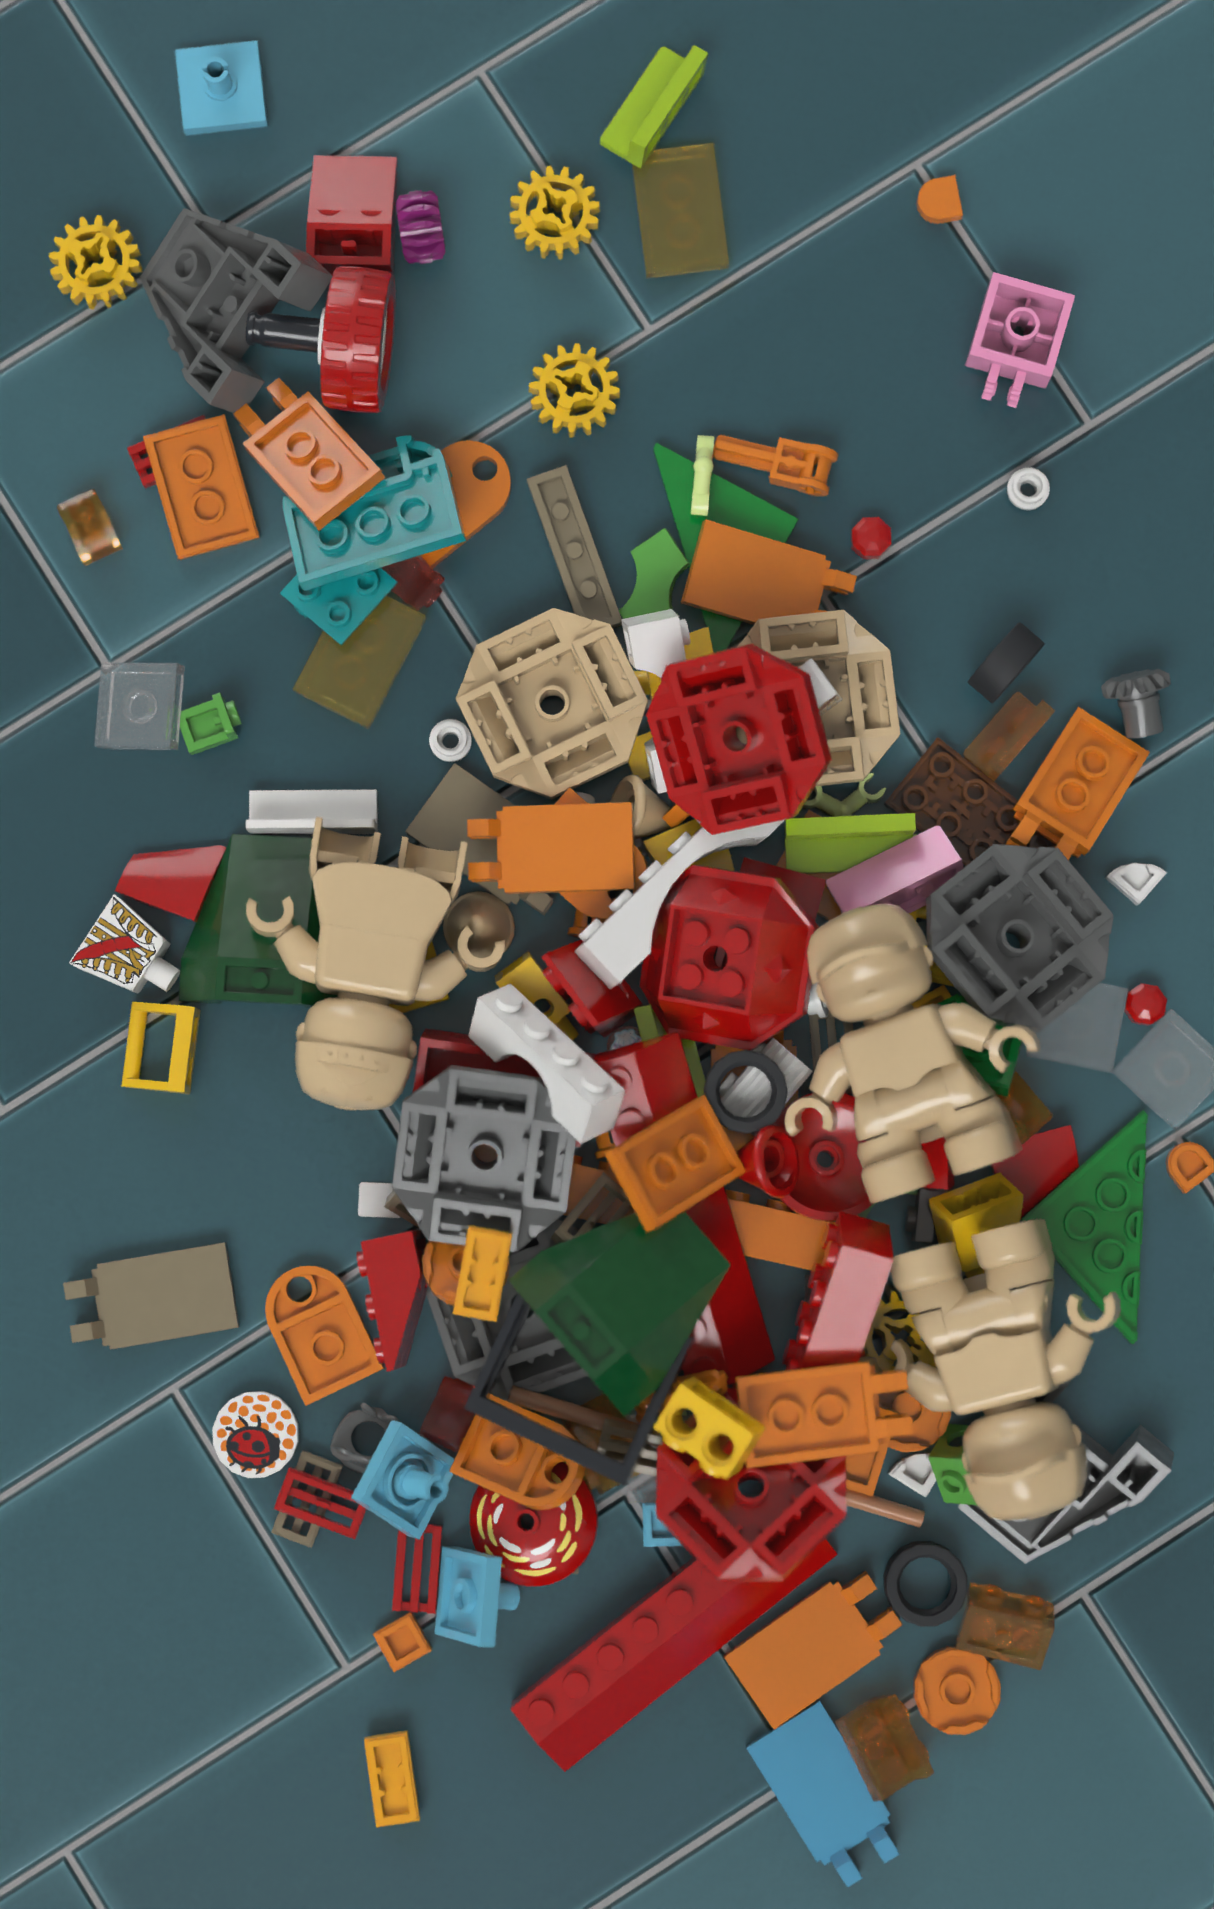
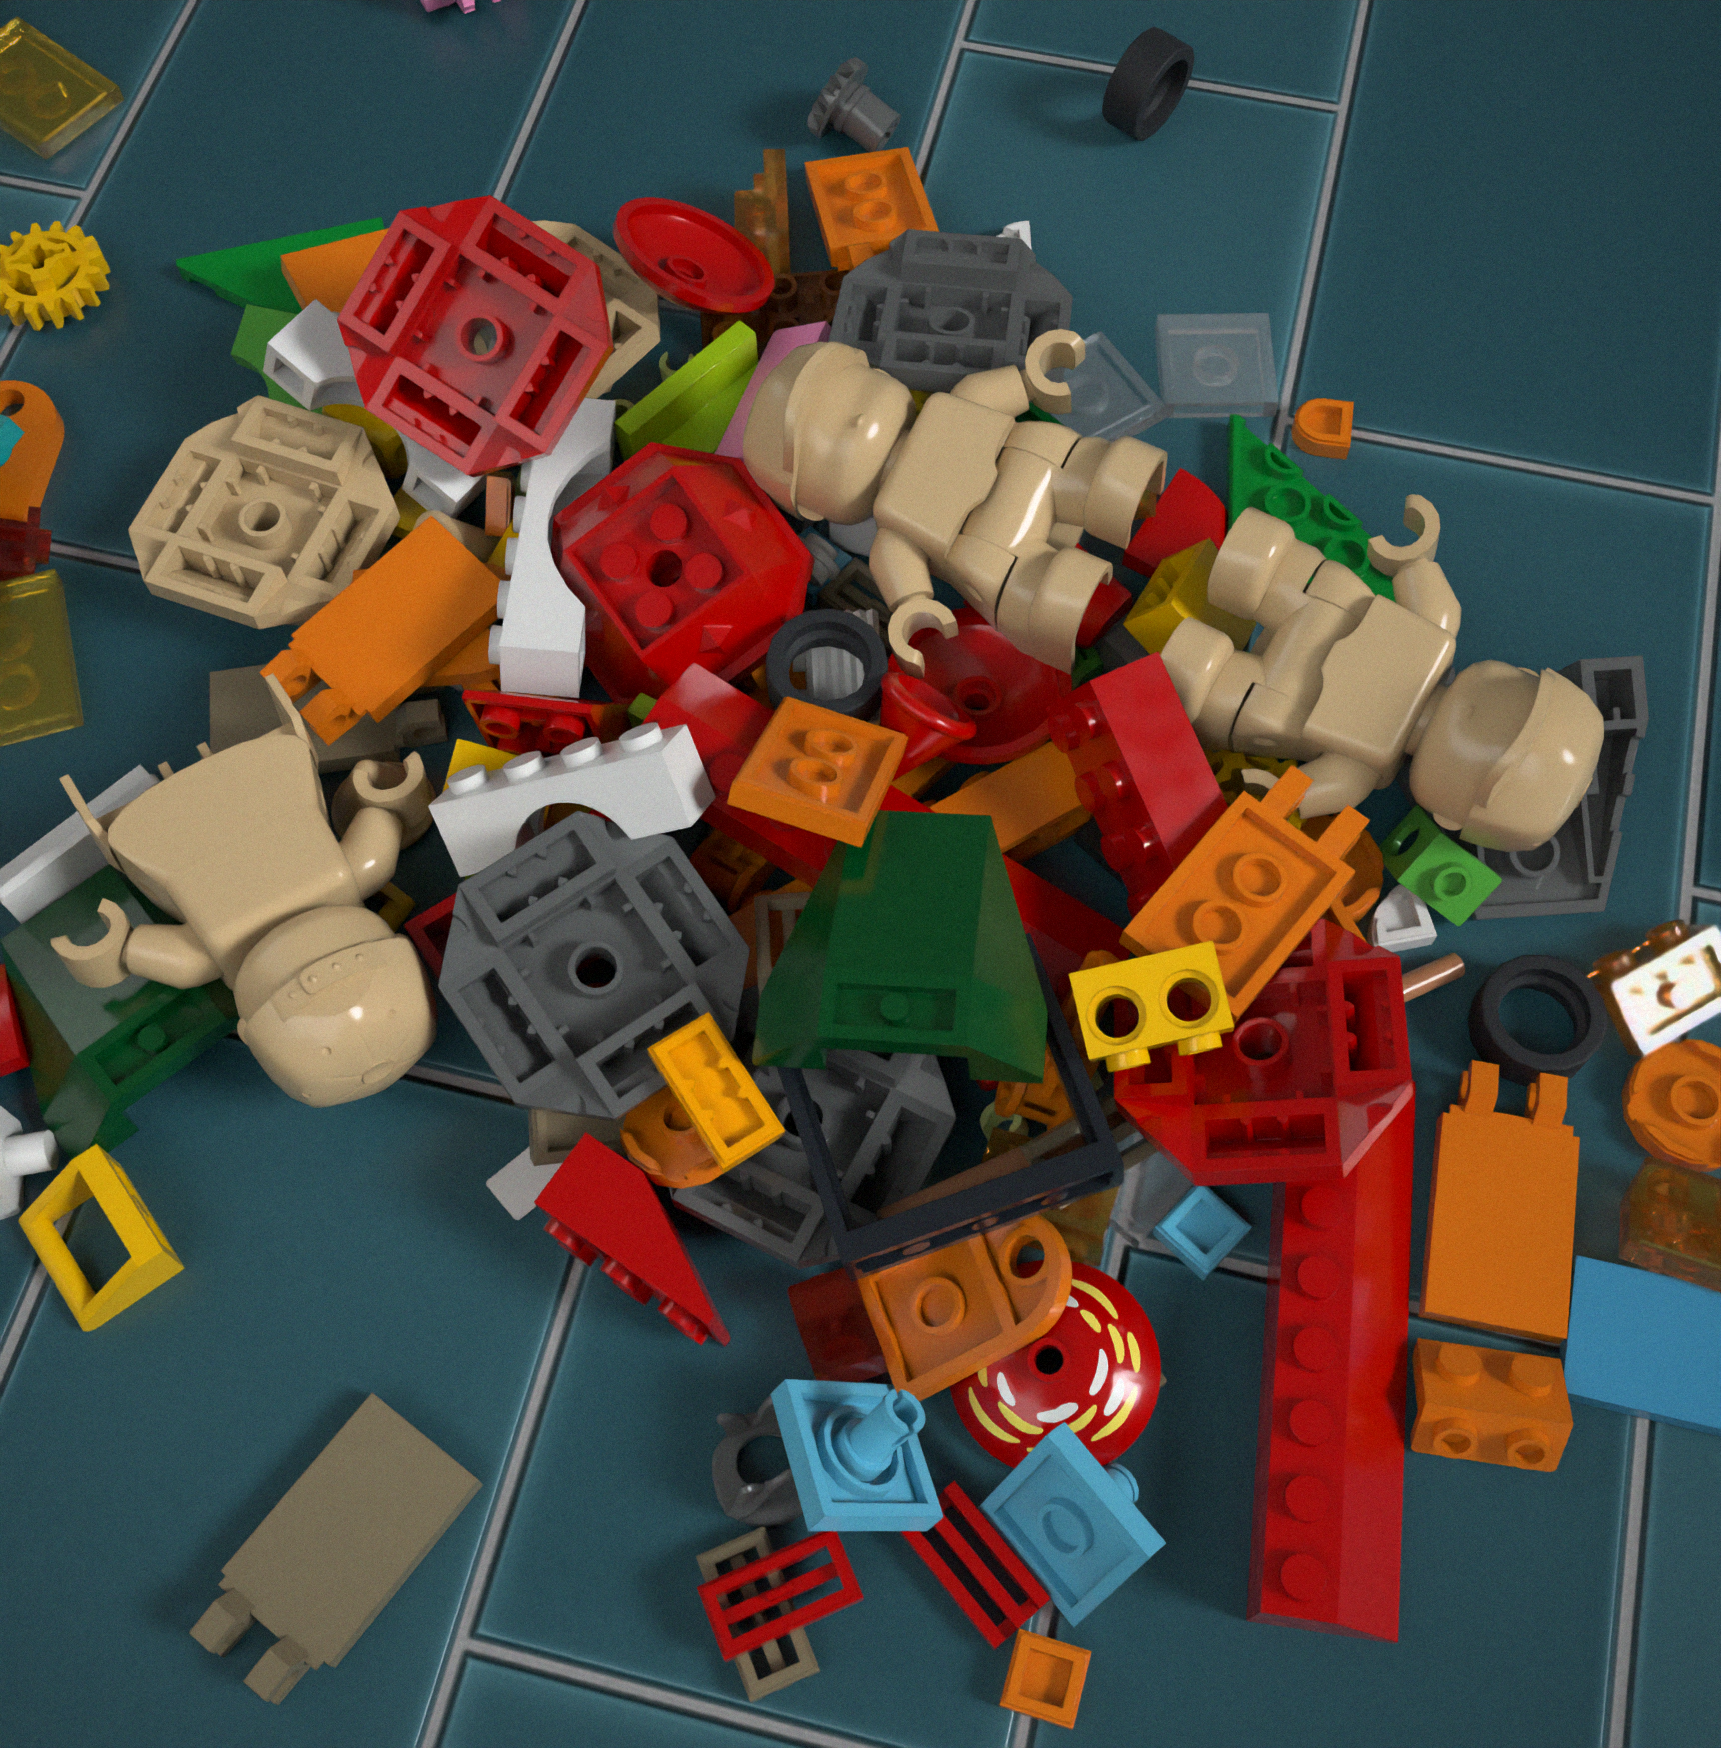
camera: 45 degrees left, 20 degrees down
(255, 1434) = (618, 1595): tile -> none
(321, 1337) = (597, 1395): orange tile -> none
(445, 728) = (179, 647): white plate -> none
(573, 546) = (146, 388): dark tan plate -> none
(703, 468) = (239, 232): yellowish green arm -> none
(708, 1721) = (1490, 1405): none -> orange bracket
(789, 464) = (328, 181): orange connector -> none
(871, 538) = (468, 180): red tile -> none
(945, 744) = (692, 257): none -> red dish
(1006, 662) = (699, 159): black tyre -> none
(1037, 480) = (580, 48): white plate -> none
(1145, 1004) = (1132, 333): red tile -> none

